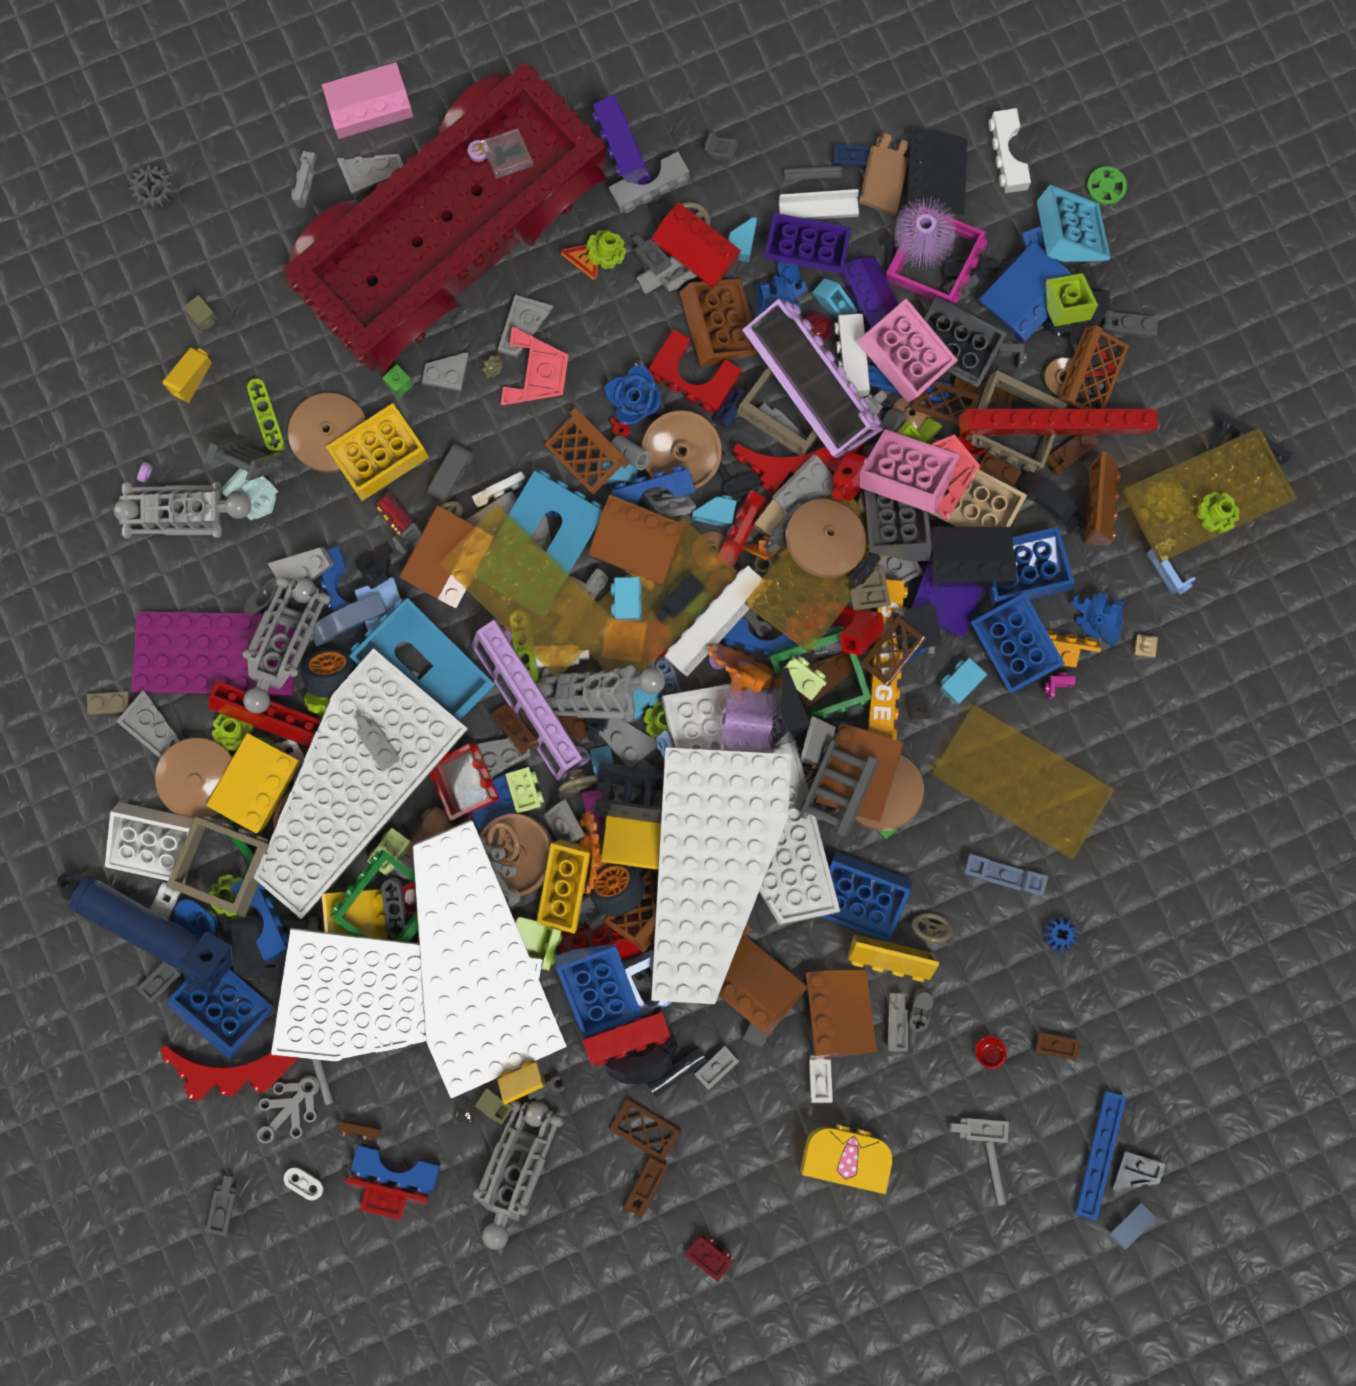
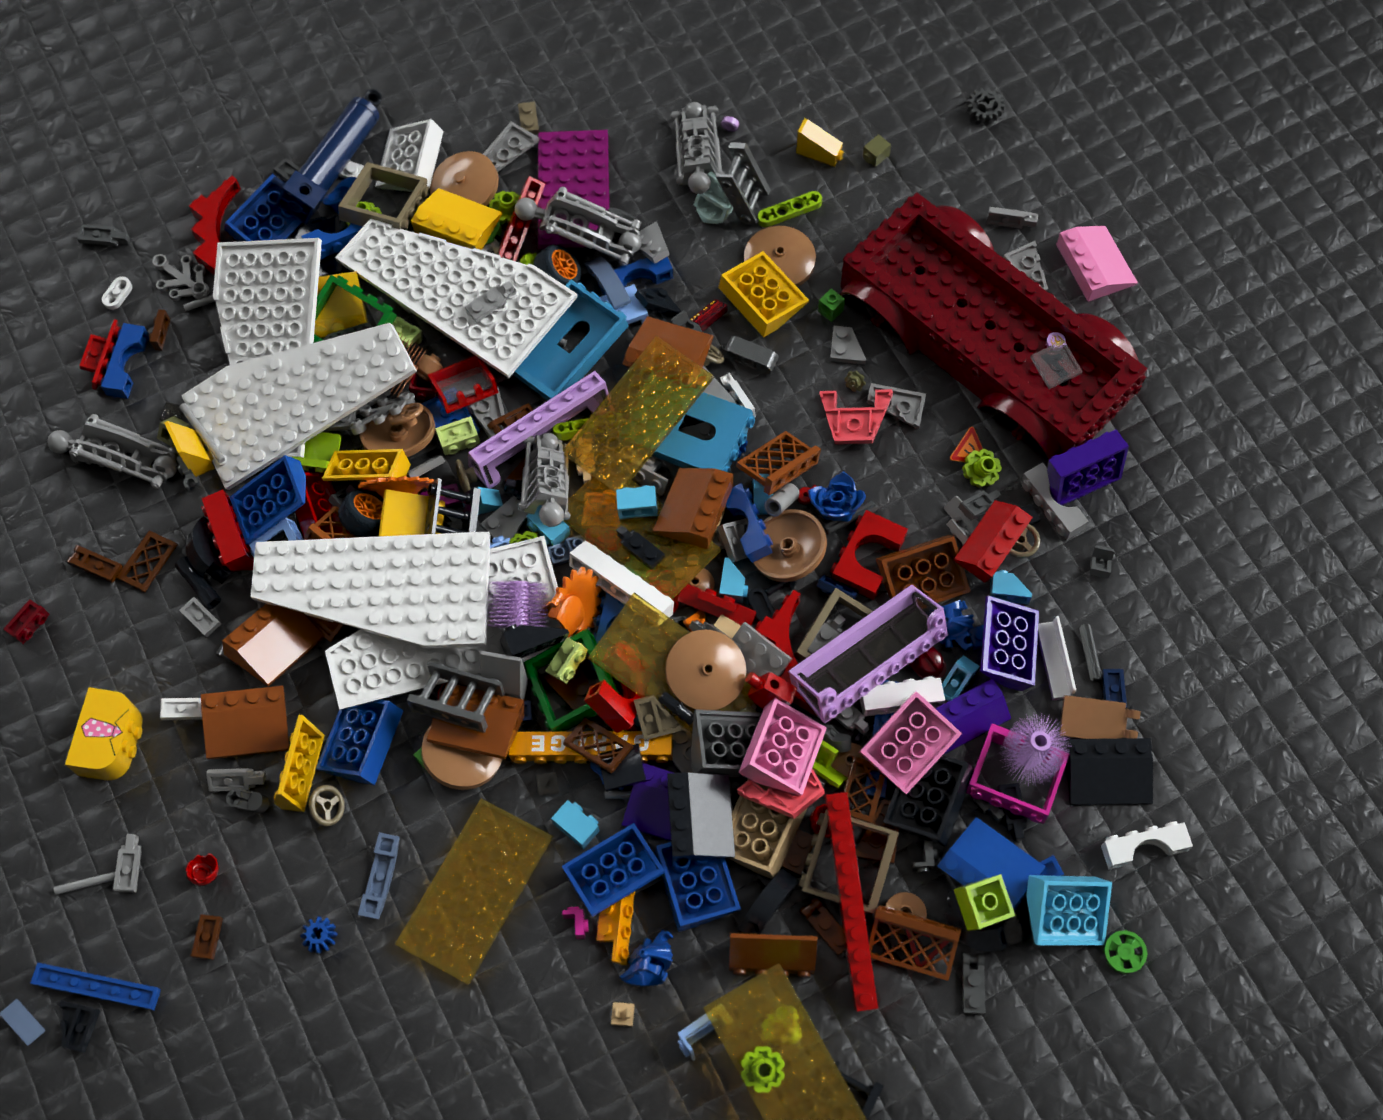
camera: 90 degrees right, 15 degrees down
(502, 1071) = (202, 433): none -> light grey bar

